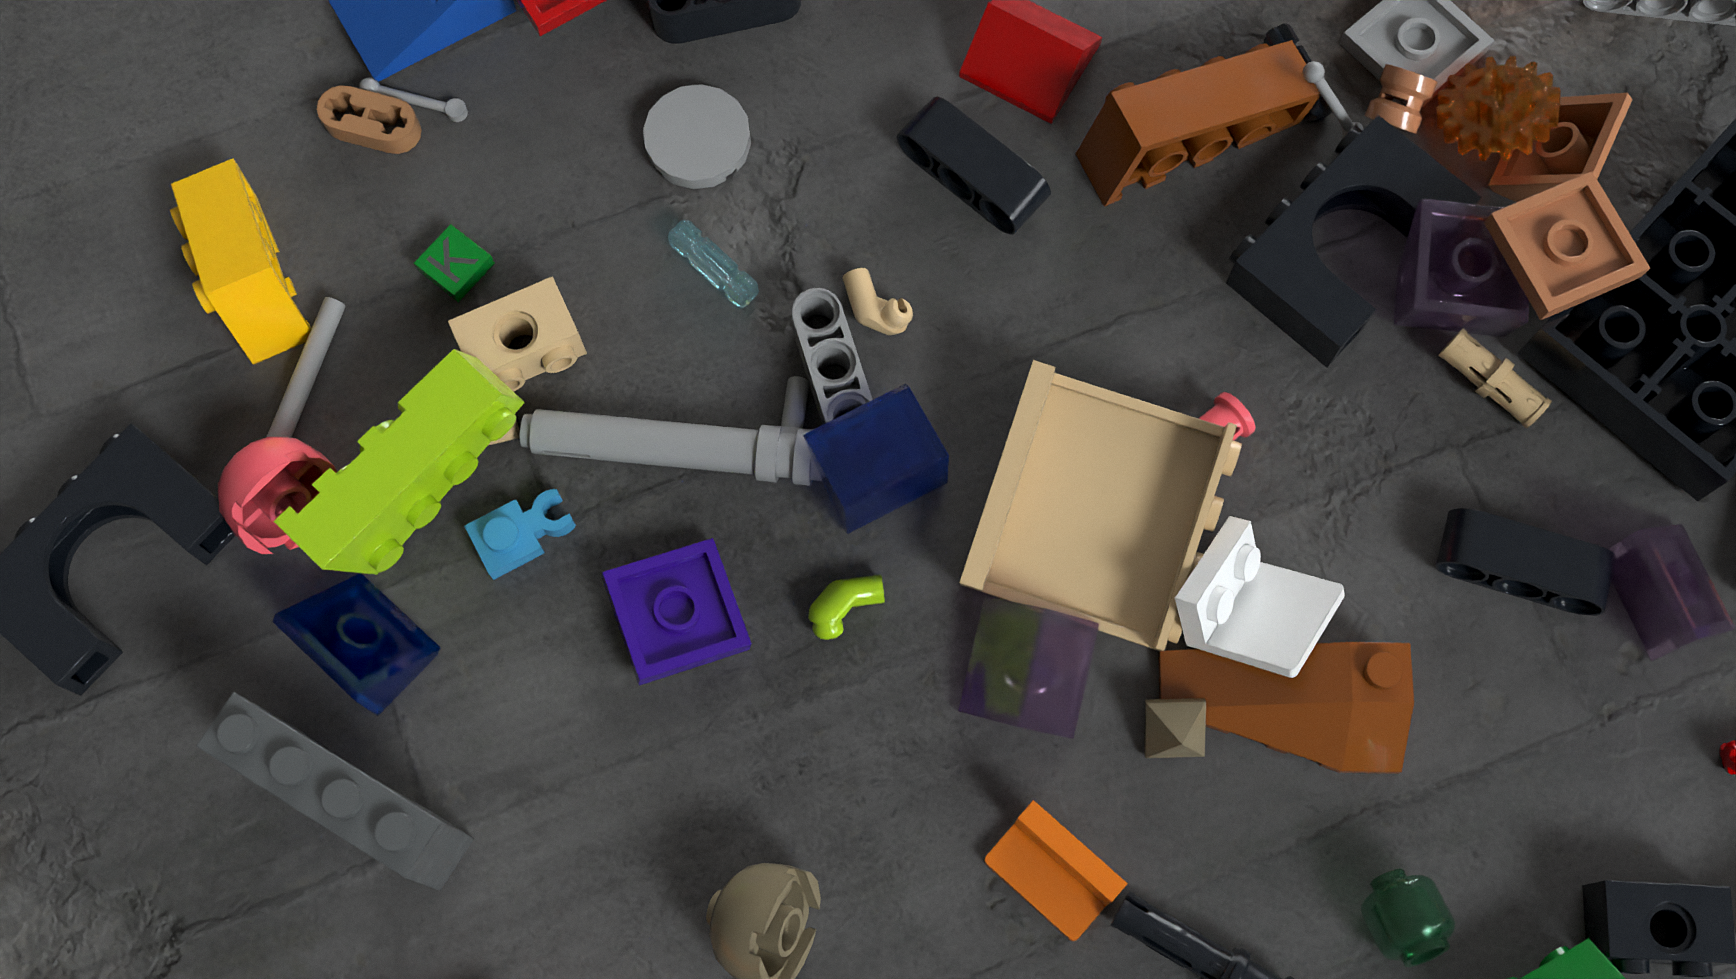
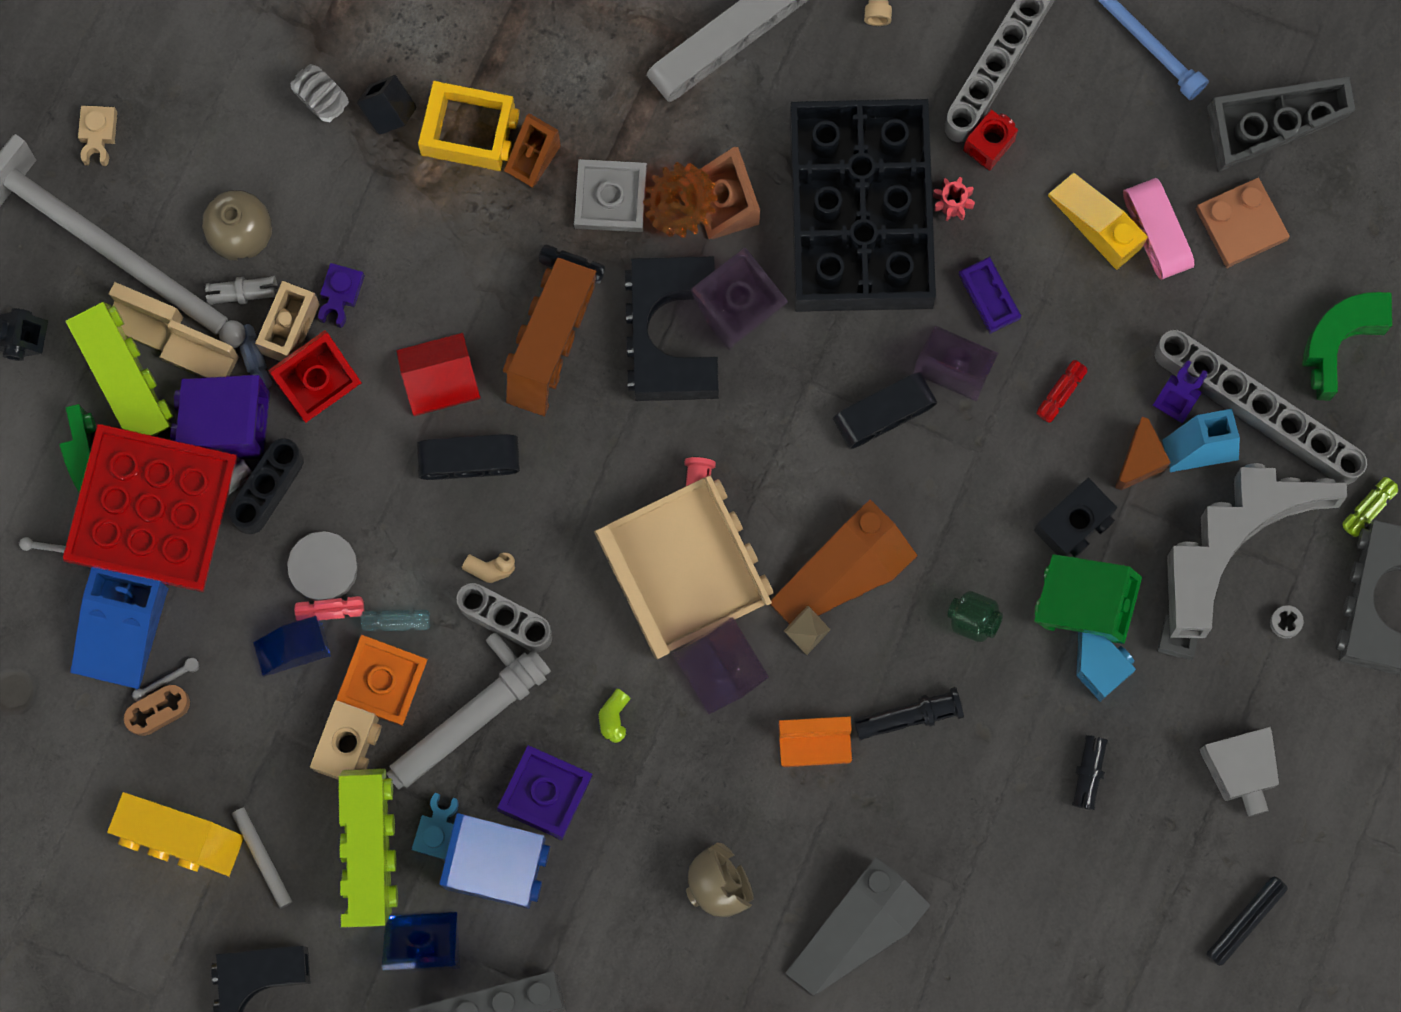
camera: 45 degrees left, 5 degrees up
(263, 484) = (313, 918): coral cylinder -> none
(454, 263) = (274, 738): green tile -> none
(529, 627) = (494, 862): none -> slope
(579, 185) = (292, 646): none -> clear blue slope
(629, 311) = (382, 680): none -> orange plate
(655, 185) = (330, 608): none -> coral axle
(878, 457) = (566, 638): clear blue slope -> none
(1252, 607) = (791, 545): white bracket -> none
(1314, 73) = (586, 269): light grey hinge -> none
(1404, 86) = (632, 237): nougat wheel -> none
(1495, 378) = (796, 335): tan pin -> none
(1566, 245) = (773, 253): nougat plate -> none

